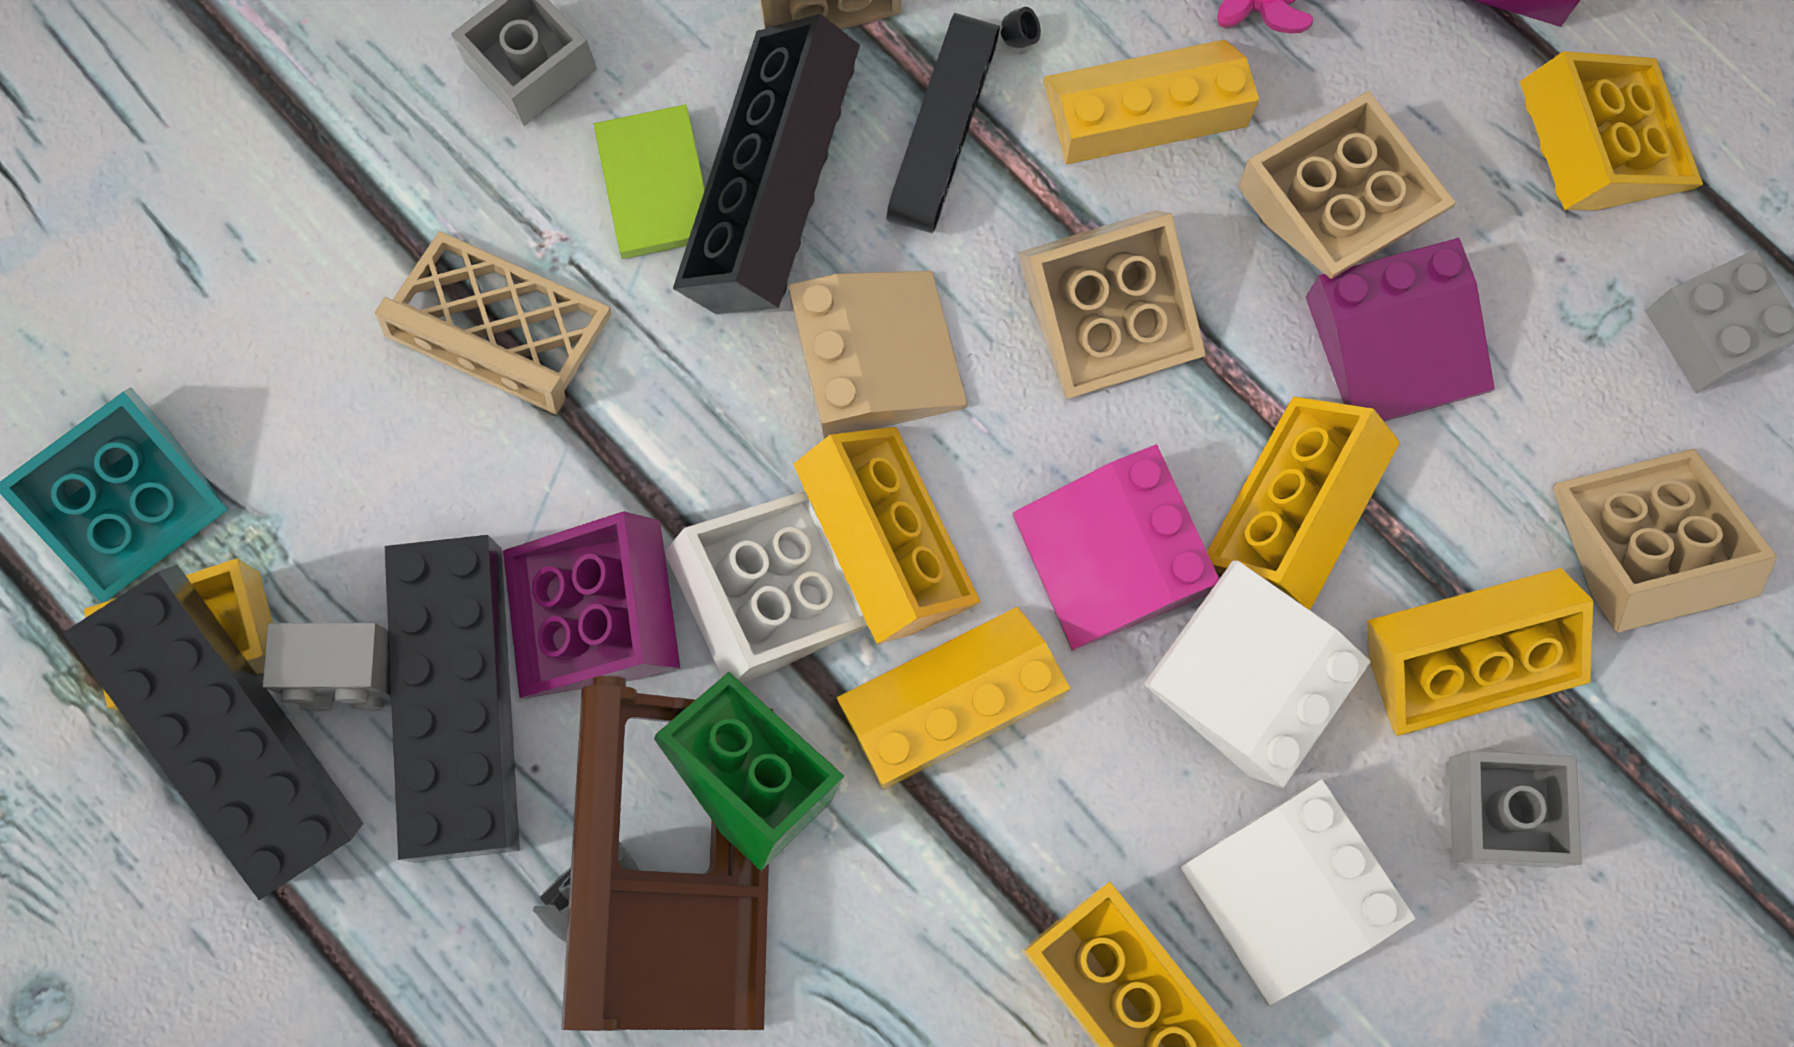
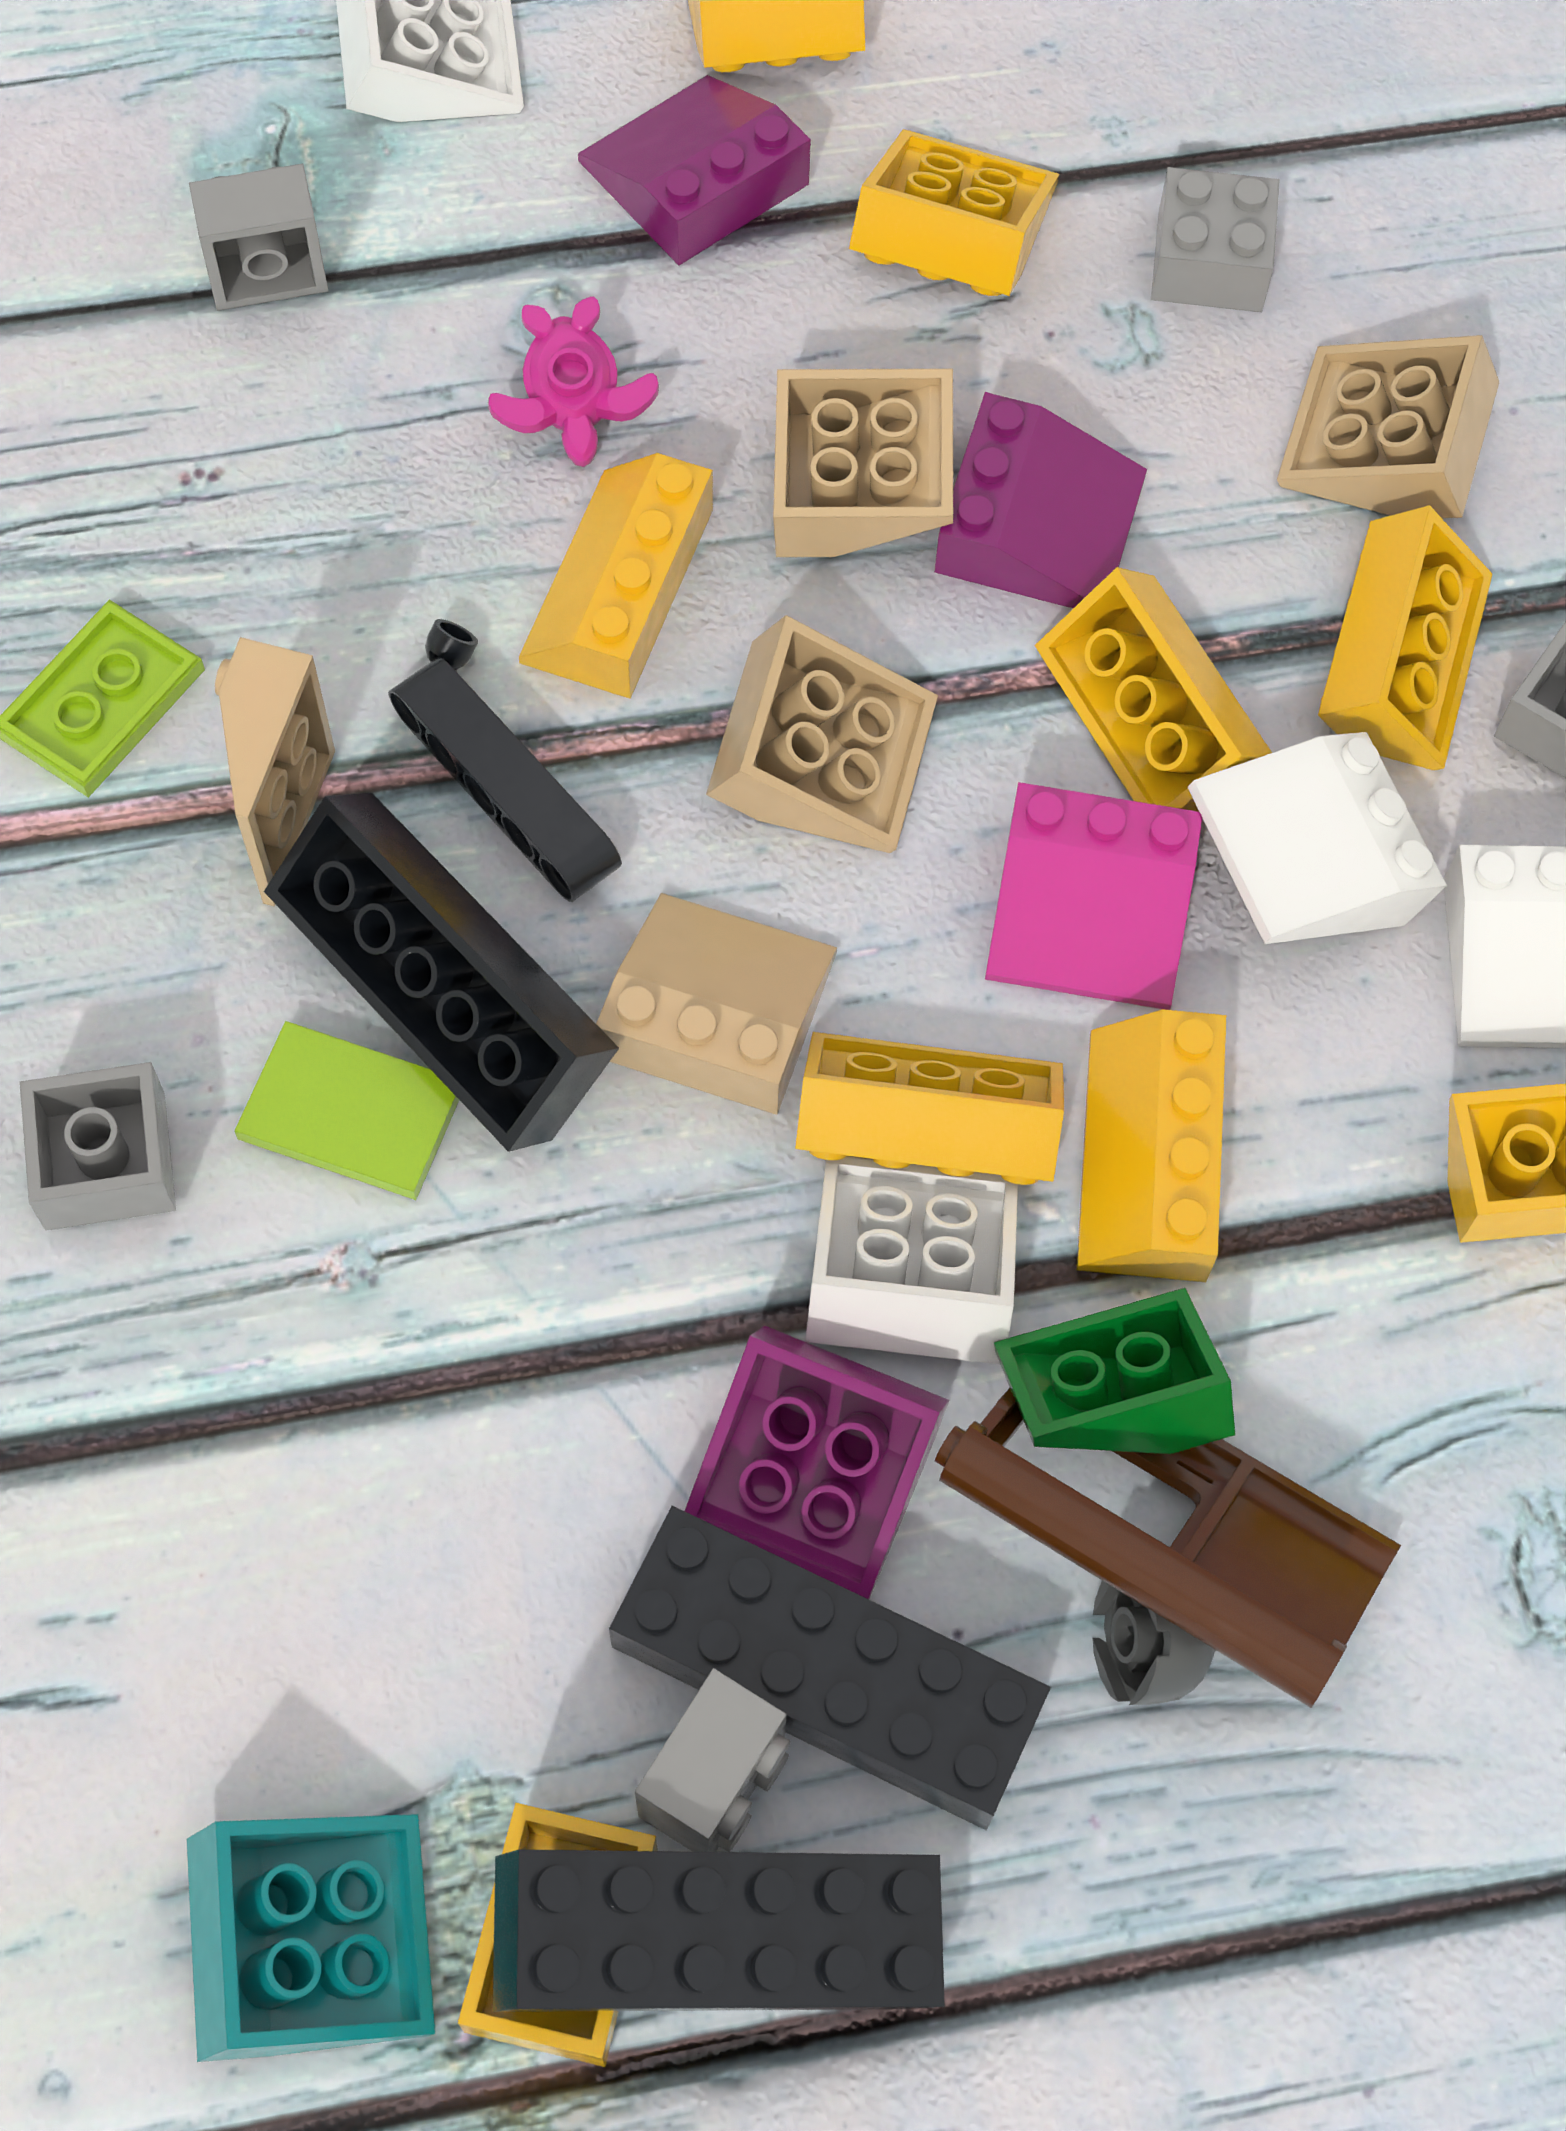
camera: 60 degrees left, 10 degrees down
(484, 358) = (435, 1409): tan fence -> none

